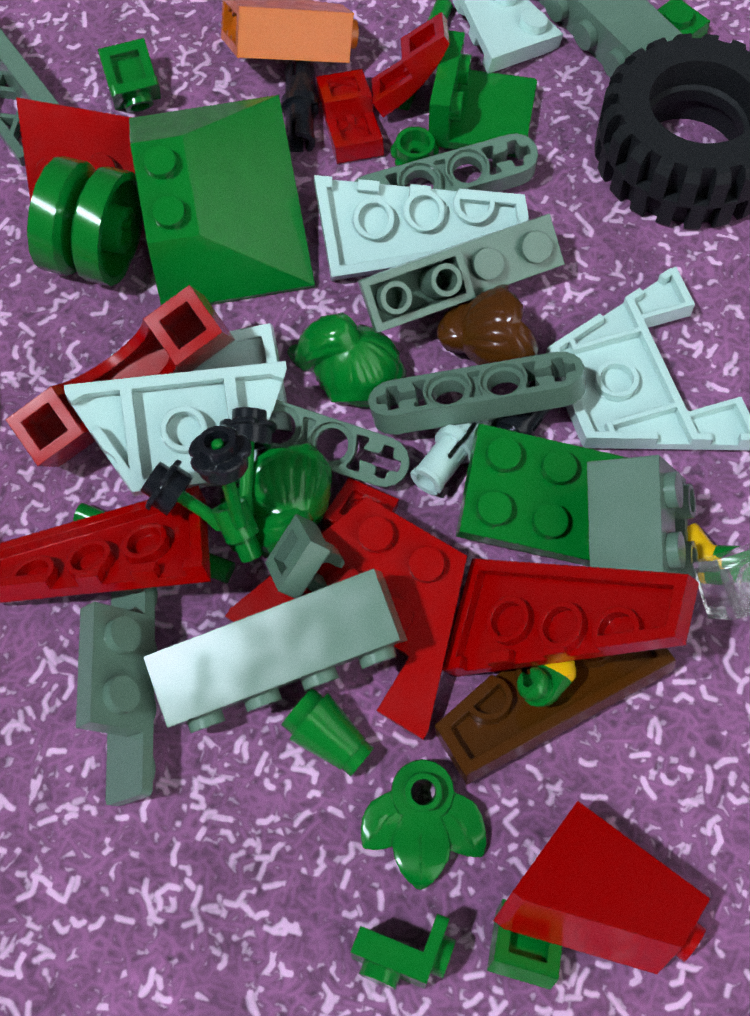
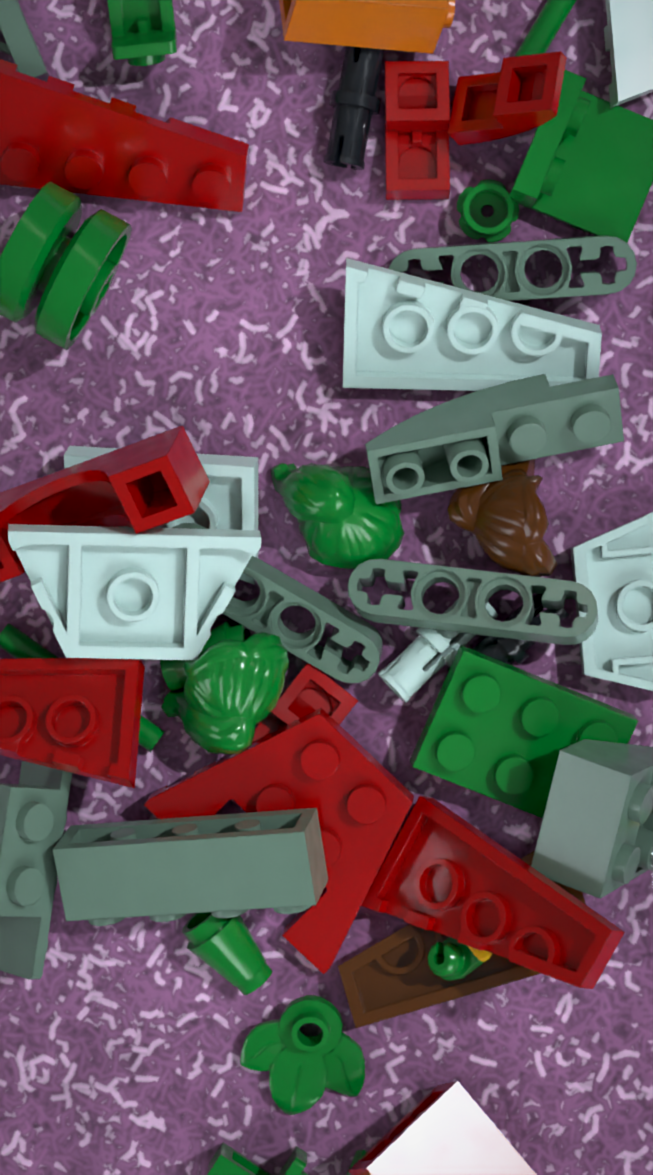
camera: 10 degrees right, 25 degrees up
(221, 201) = (225, 253): green slope -> none
(221, 458) = (171, 700): black plant -> none
(299, 557) = (233, 781): sand green tile -> none

